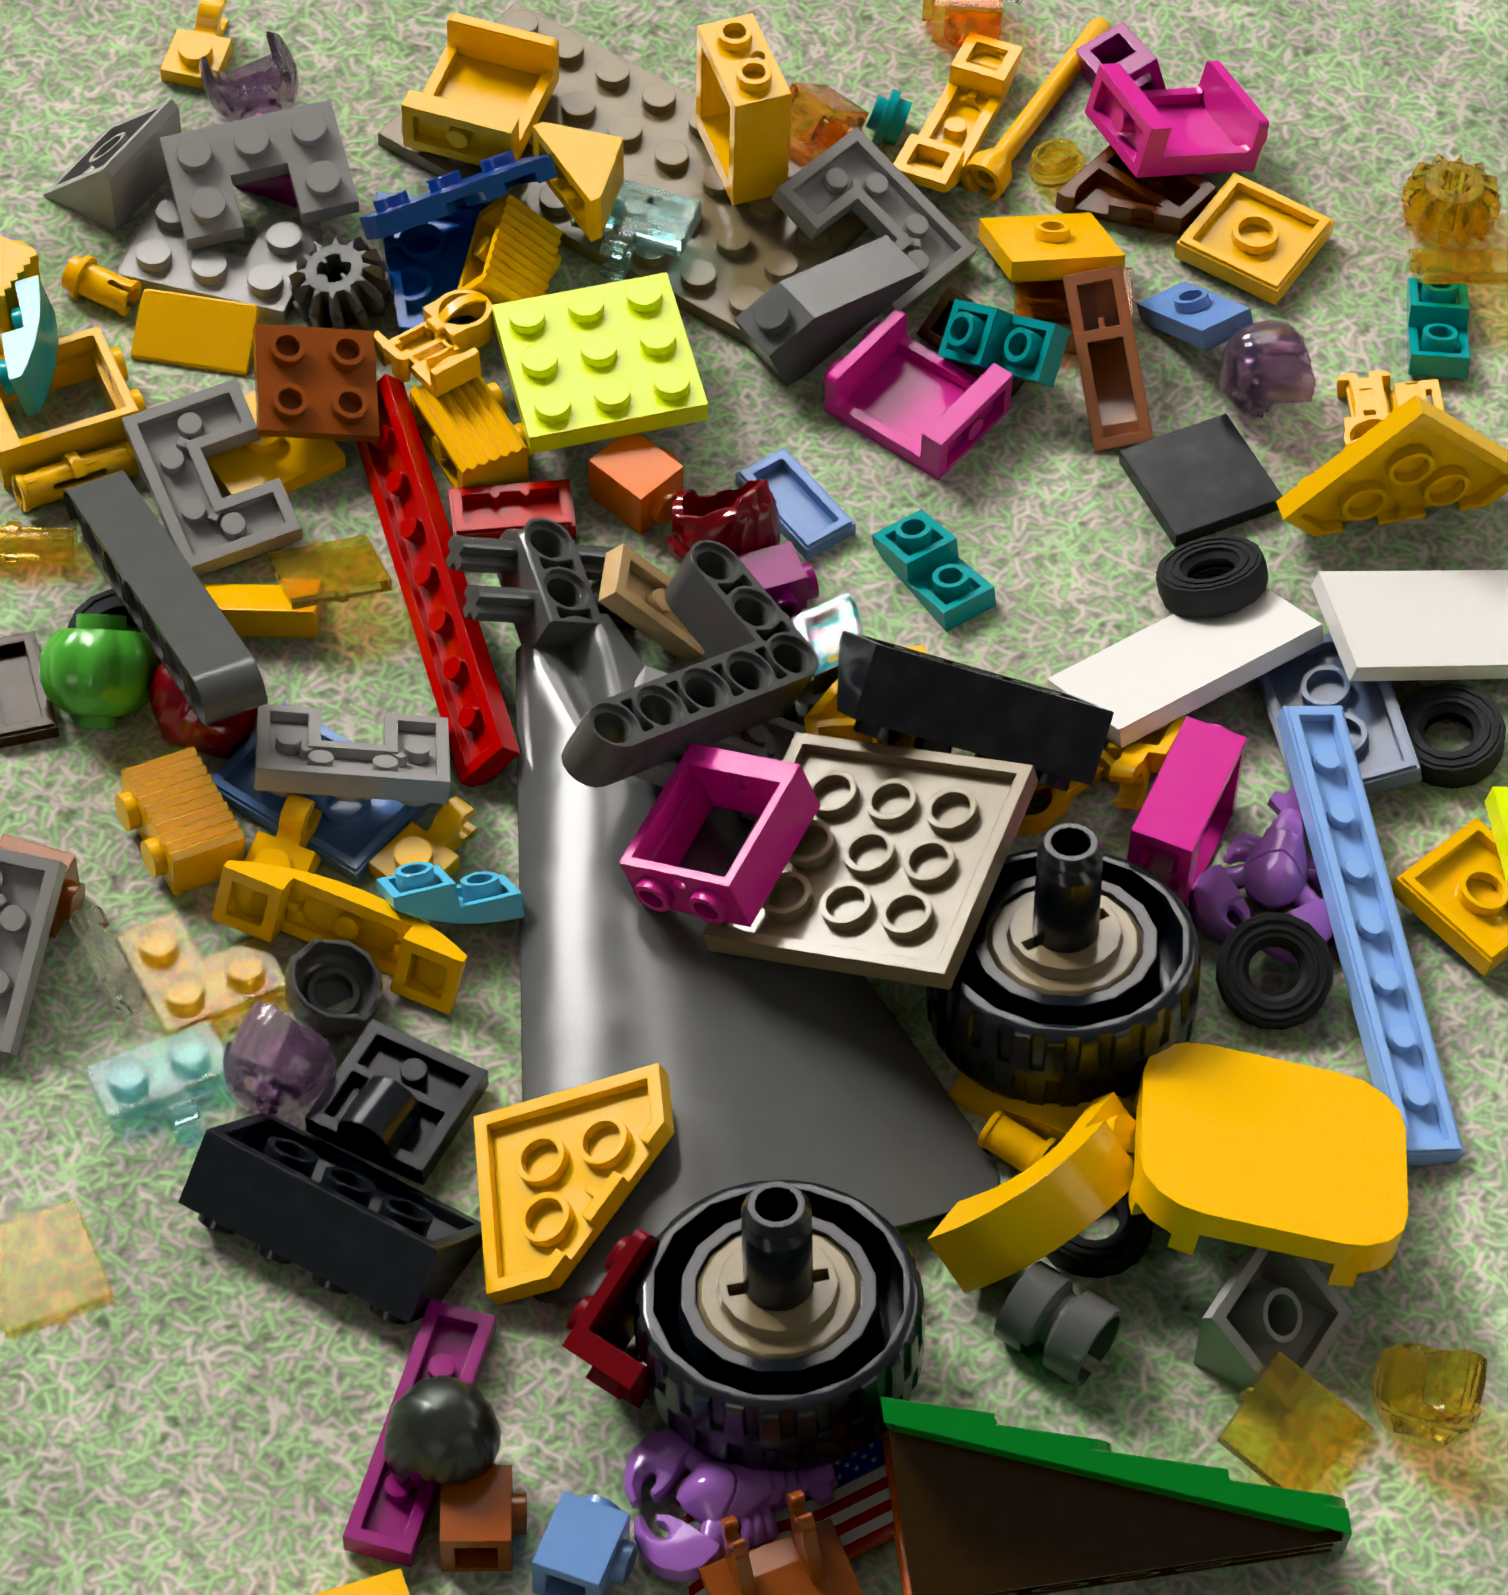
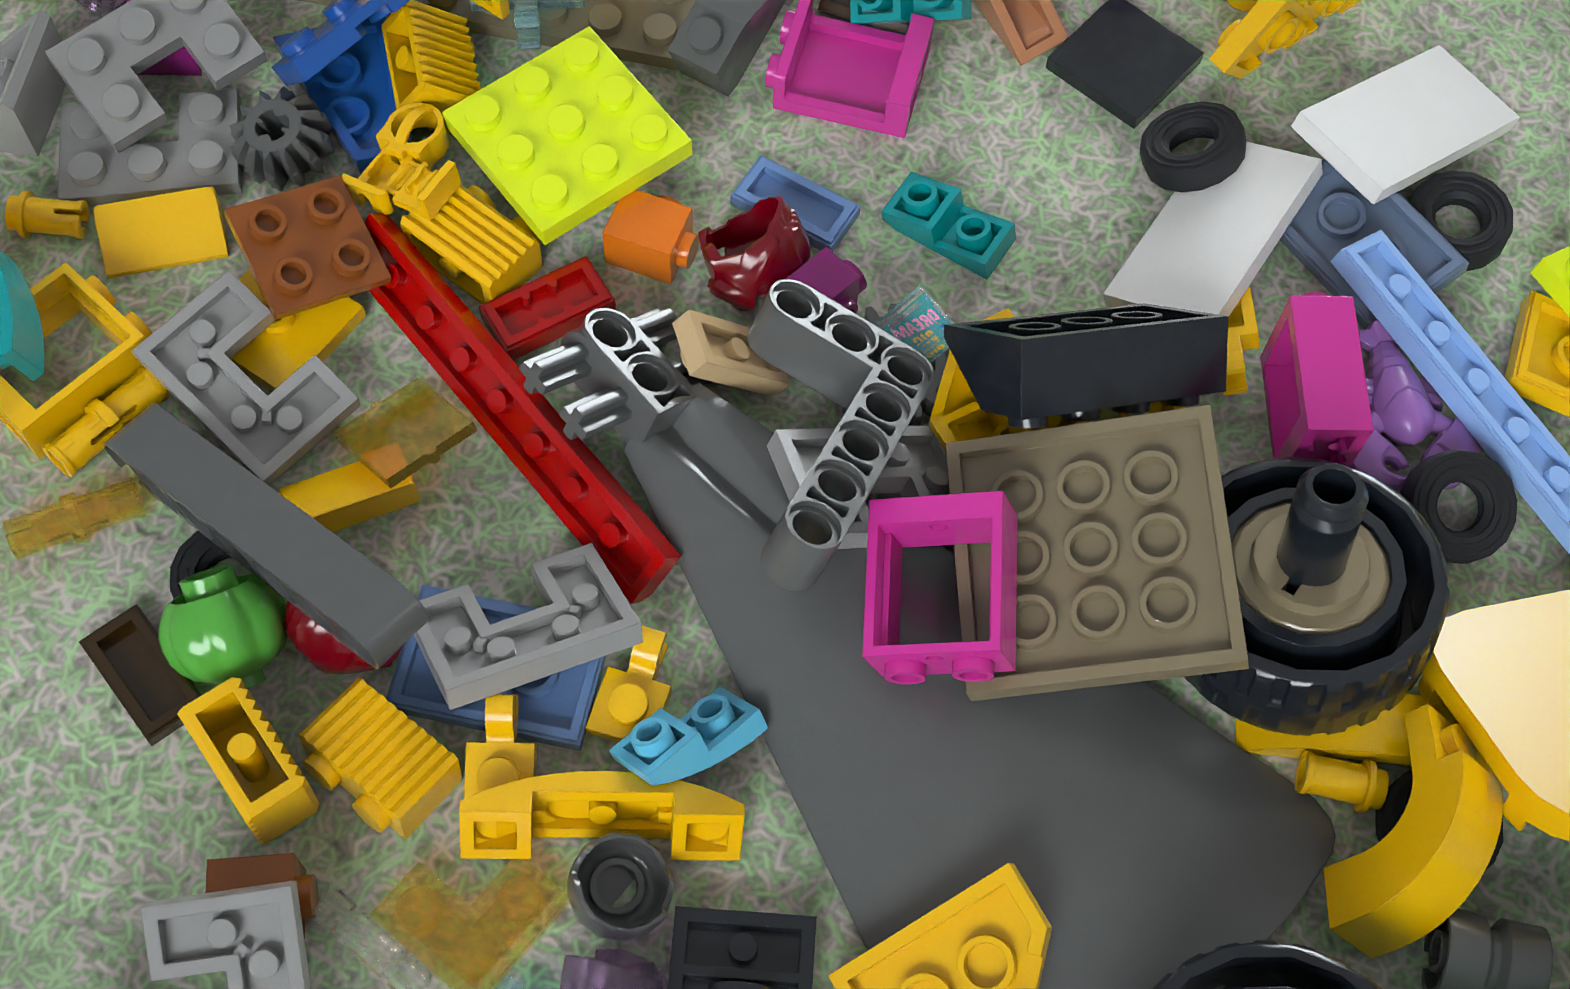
camera: 25 degrees left, 10 degrees up
(72, 776) = (249, 760): none -> yellow brick

